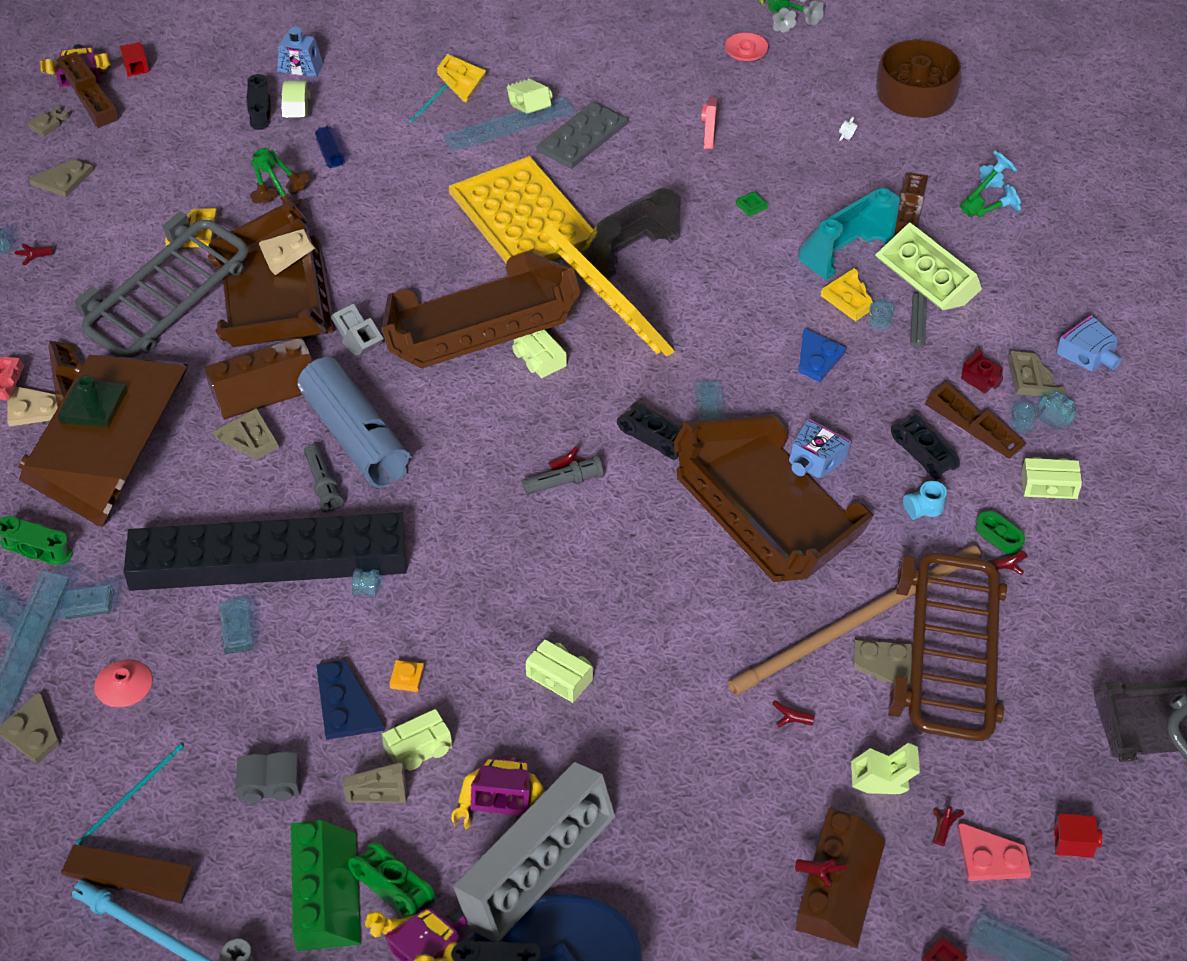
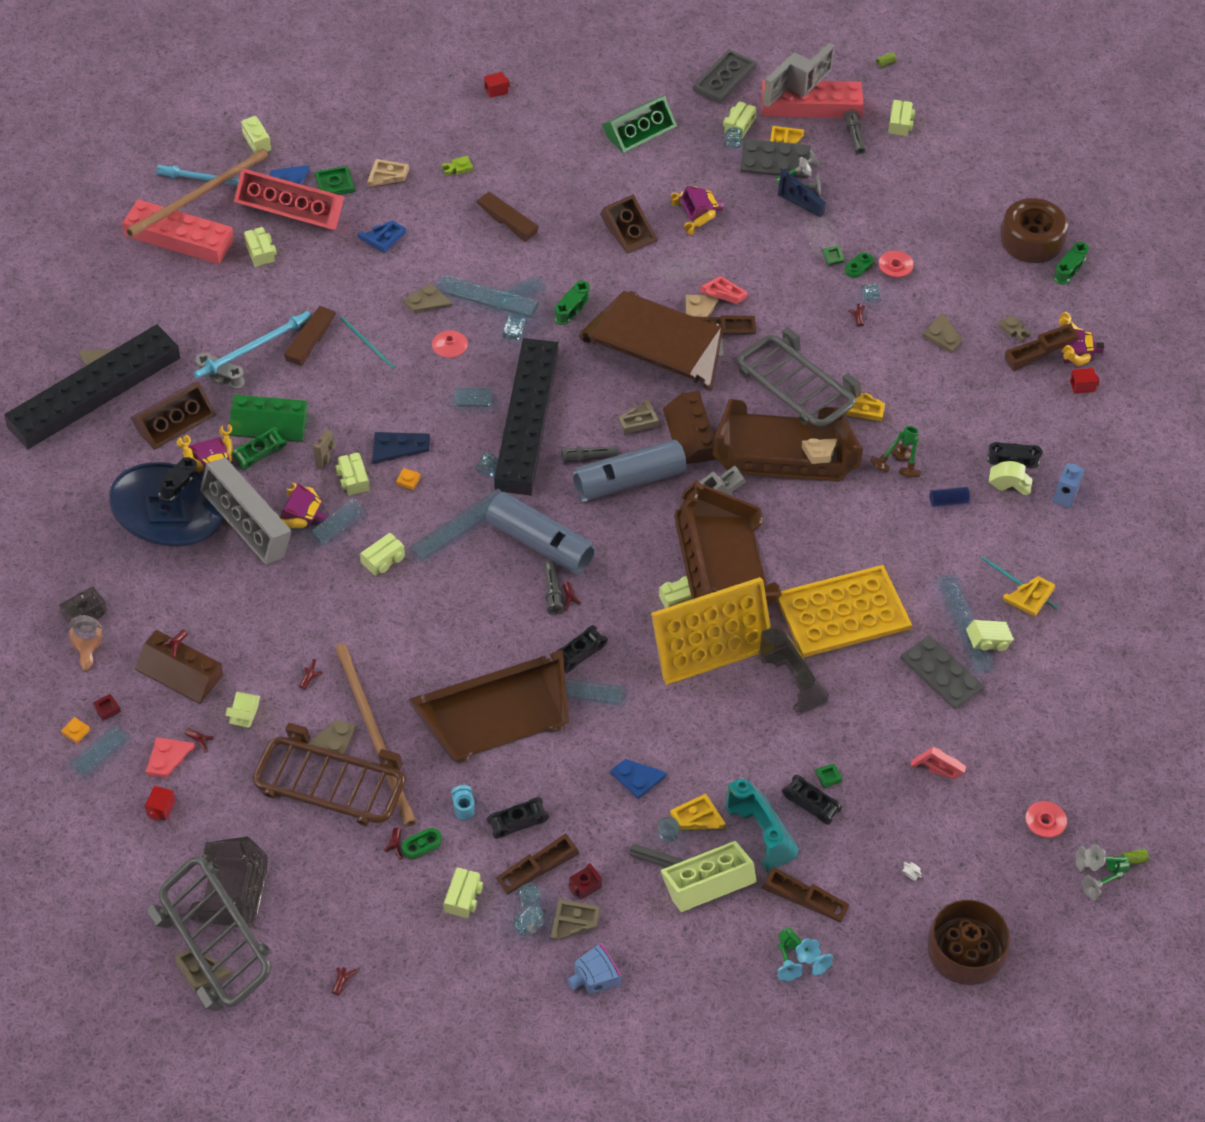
camera: 100 degrees right, 5 degrees up
(92, 403) = (667, 323): clear green tile -> none
(268, 776) = (351, 401): dark grey brick -> none
(479, 598) = (453, 529): none -> clear light blue tile
(482, 495) = (540, 533): none -> sand blue piece
(511, 741) = (337, 522): none -> clear light blue tile
(791, 208) = (821, 807): none -> black piece
(818, 450) = (530, 743): medium blue torso -> none

